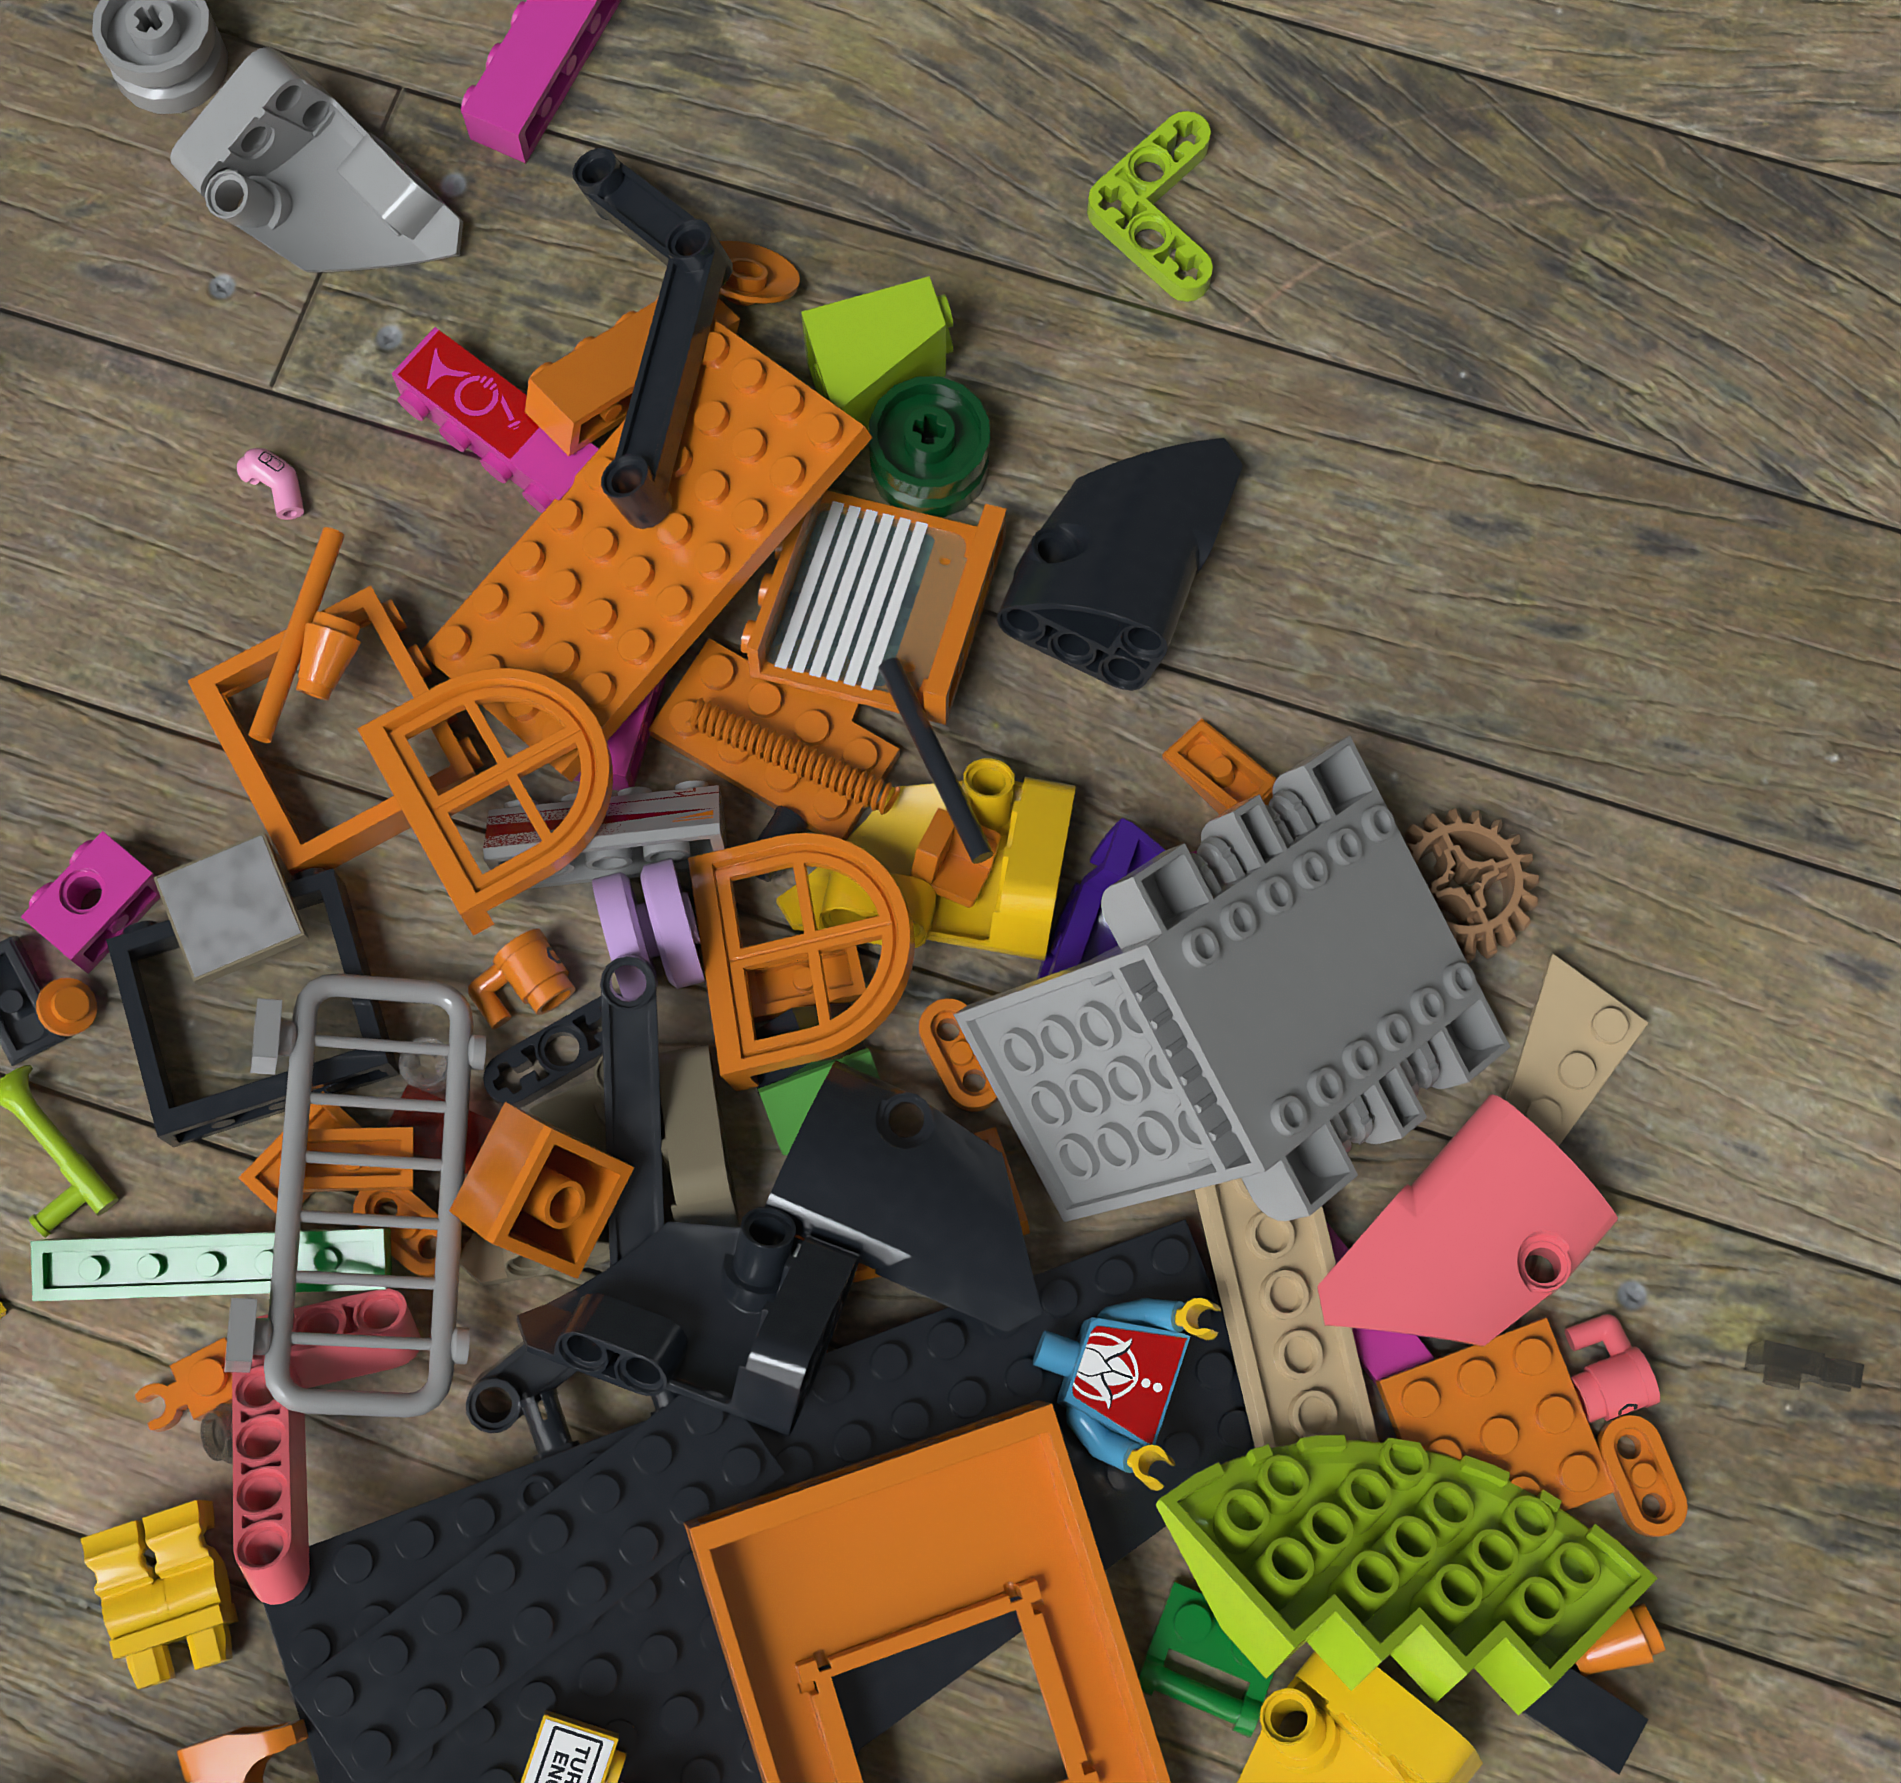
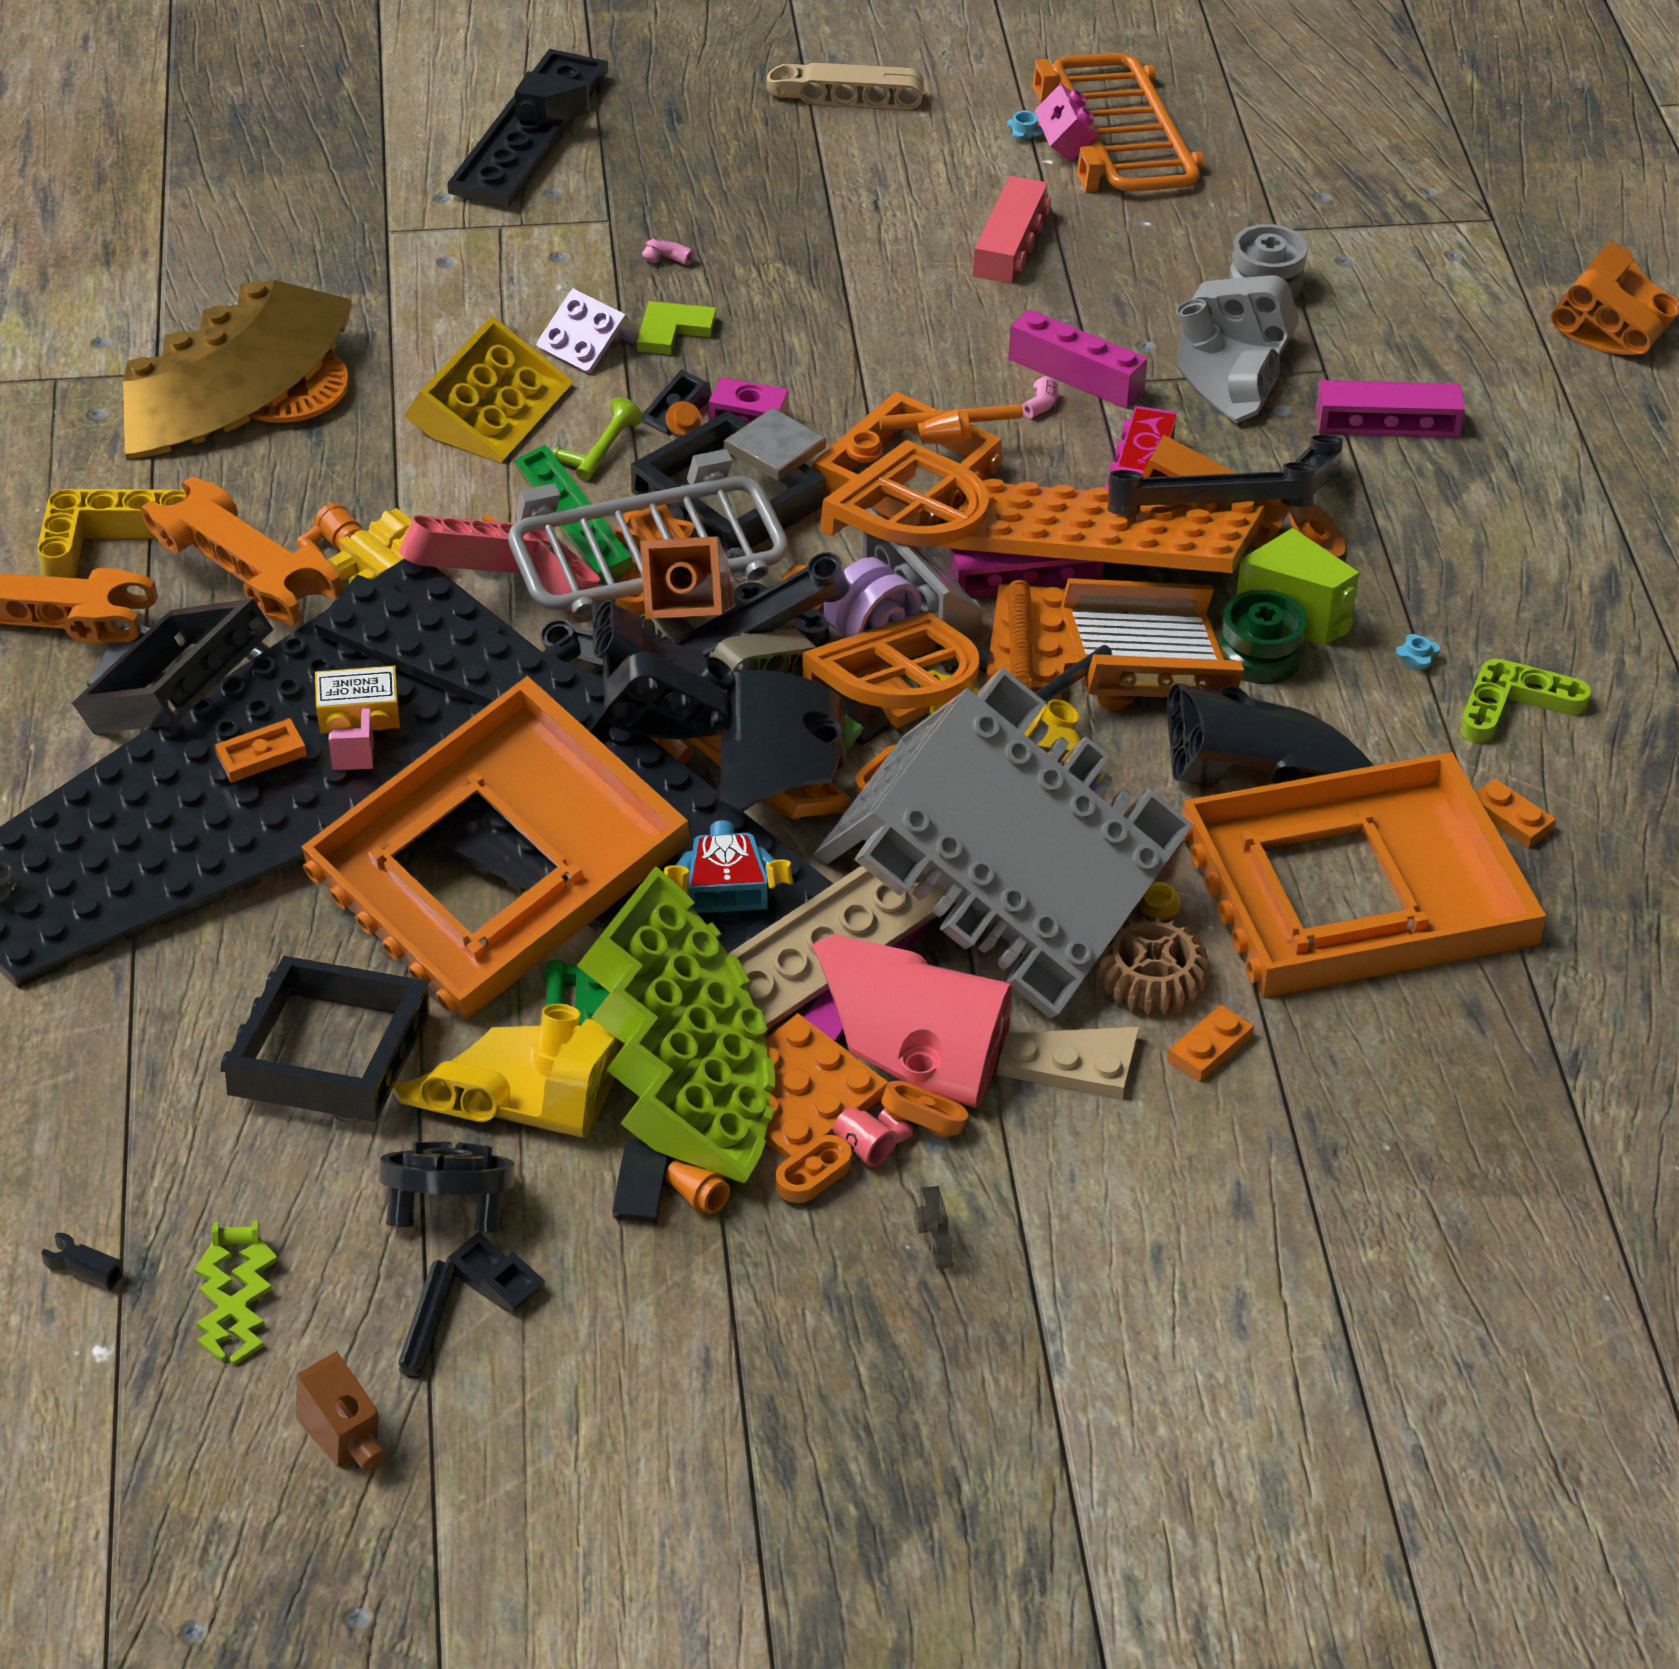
camera: 65 degrees right, 30 degrees down
(56, 1639) = (332, 523): none -> orange piece
(227, 395) = (1077, 358): none -> dark pink brick
(304, 786) = (864, 446): none -> orange plate
(1022, 286) = (1417, 652): none -> medium azure plate
(1356, 321) = (1515, 814): none -> orange plate
(1419, 451) = (1428, 839): none -> orange panel
(1597, 1293) = (915, 1104): none -> orange plate
(1601, 878) = (1210, 1043): none -> orange plate

